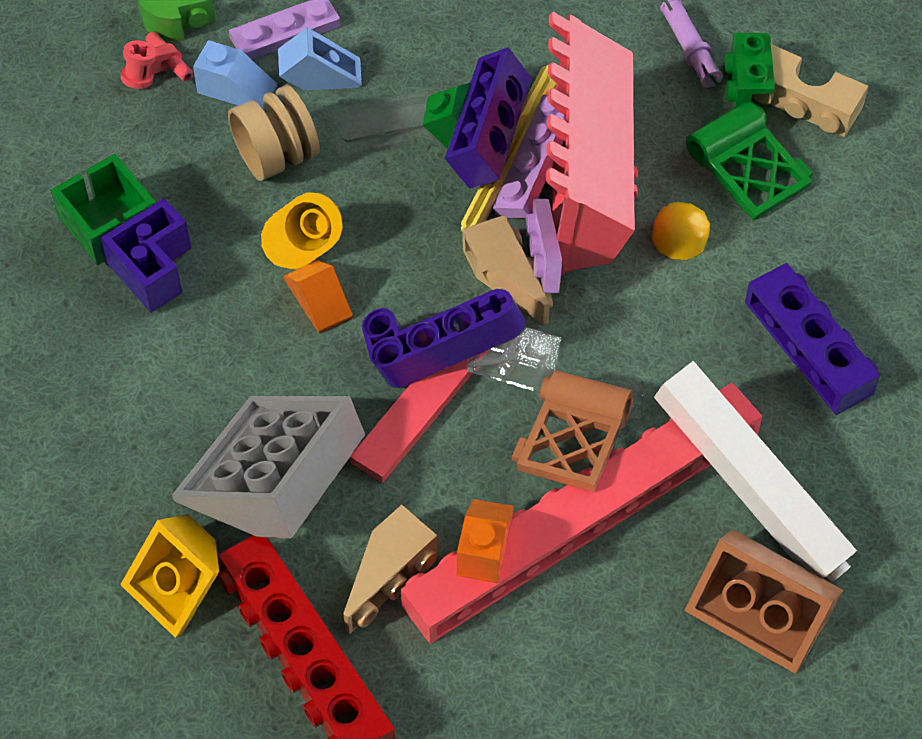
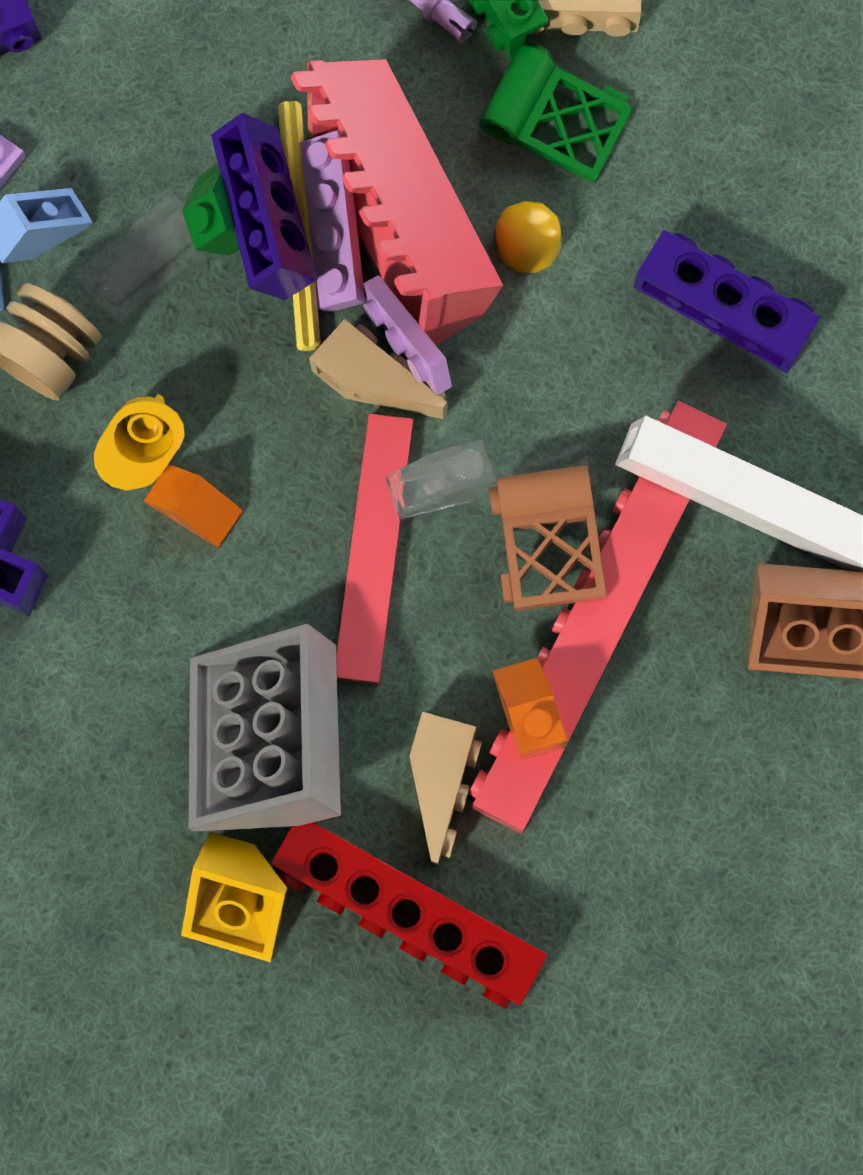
camera: 25 degrees left, 20 degrees up
(441, 340) = (358, 493): dark purple beam -> none

